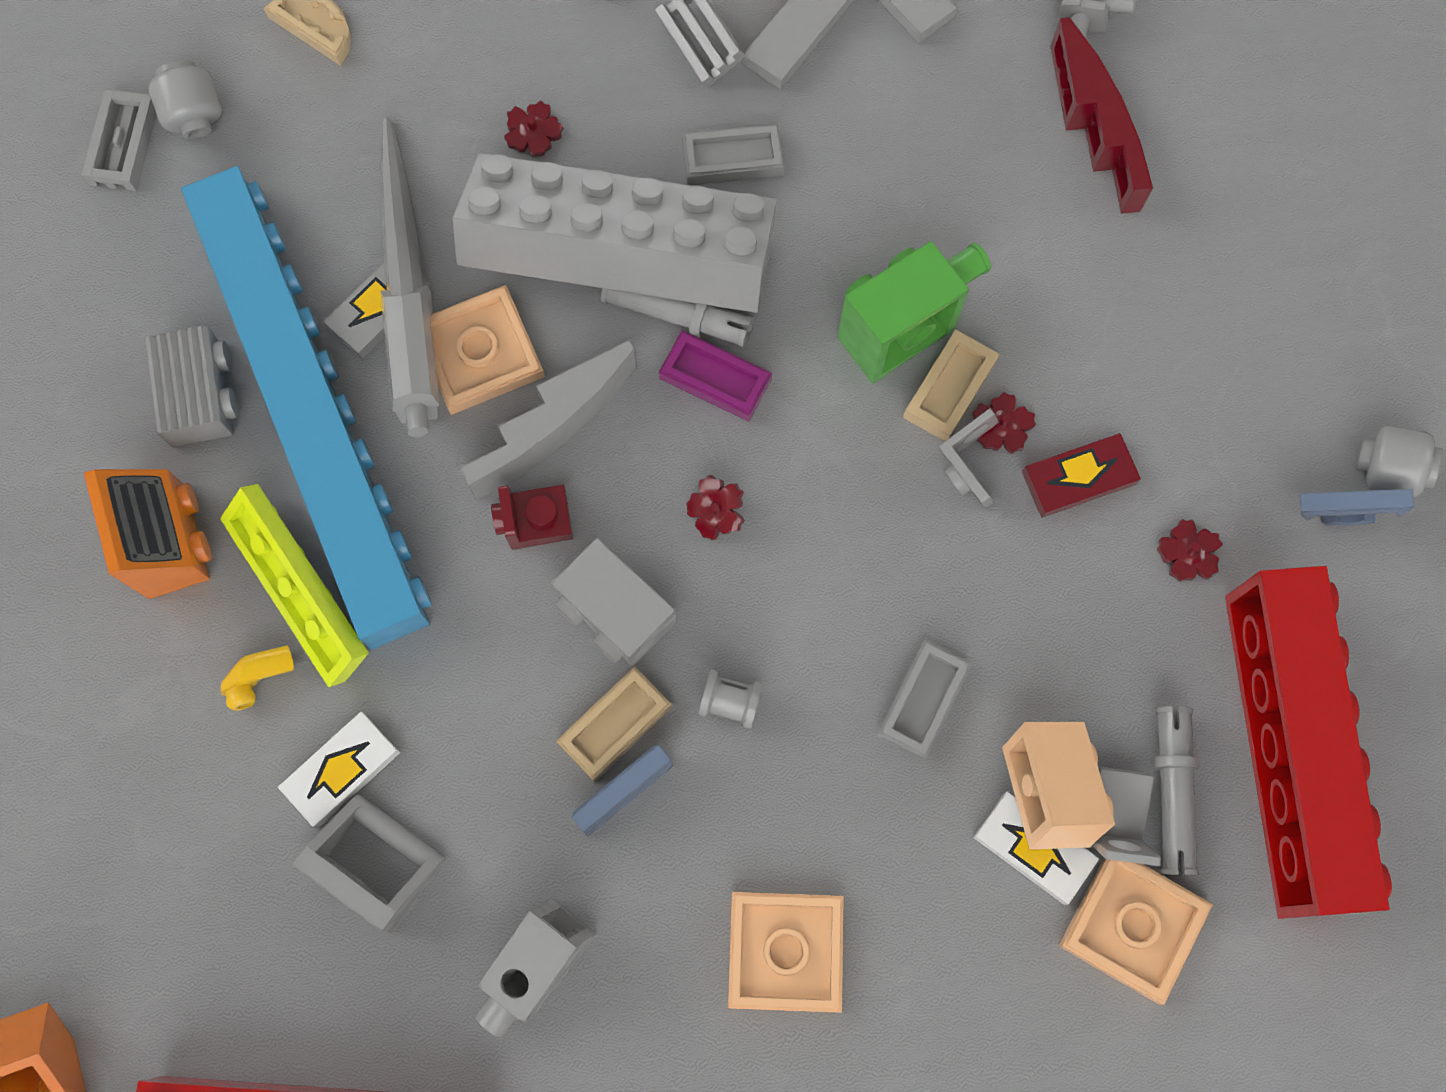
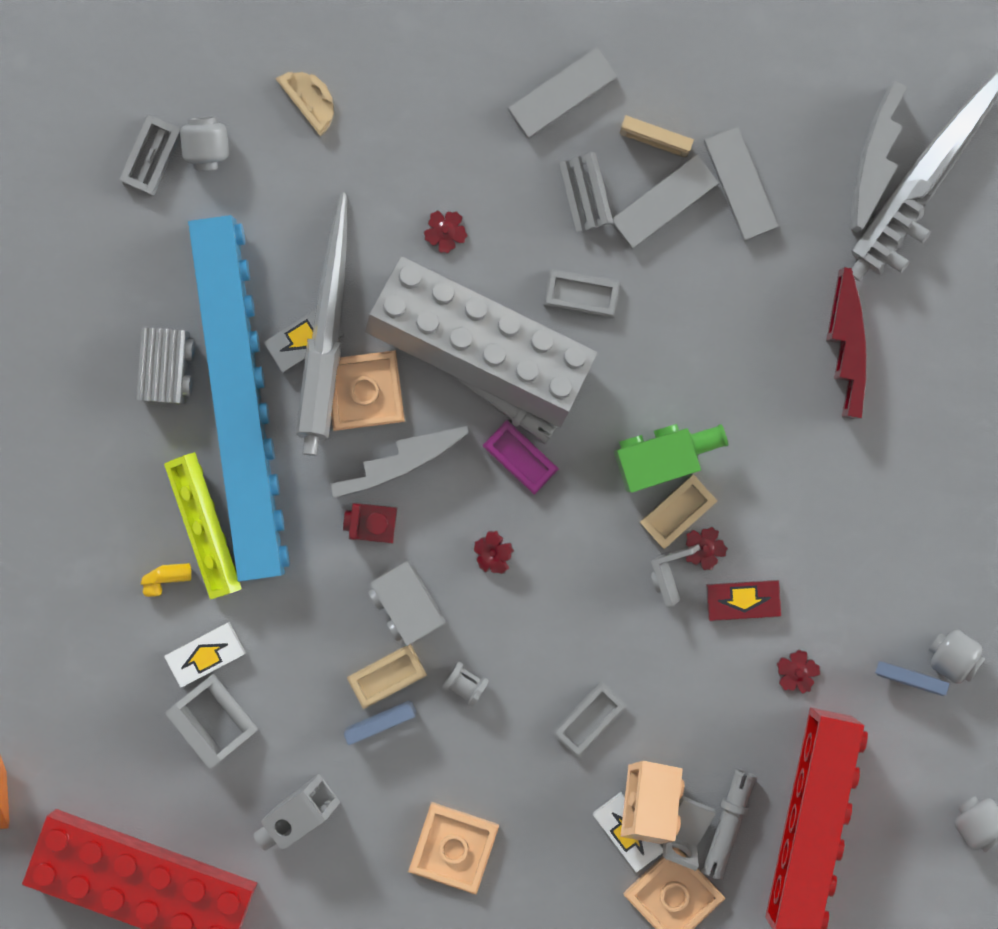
camera: 10 degrees right, 15 degrees up
(148, 529) = (119, 465): orange slope -> none

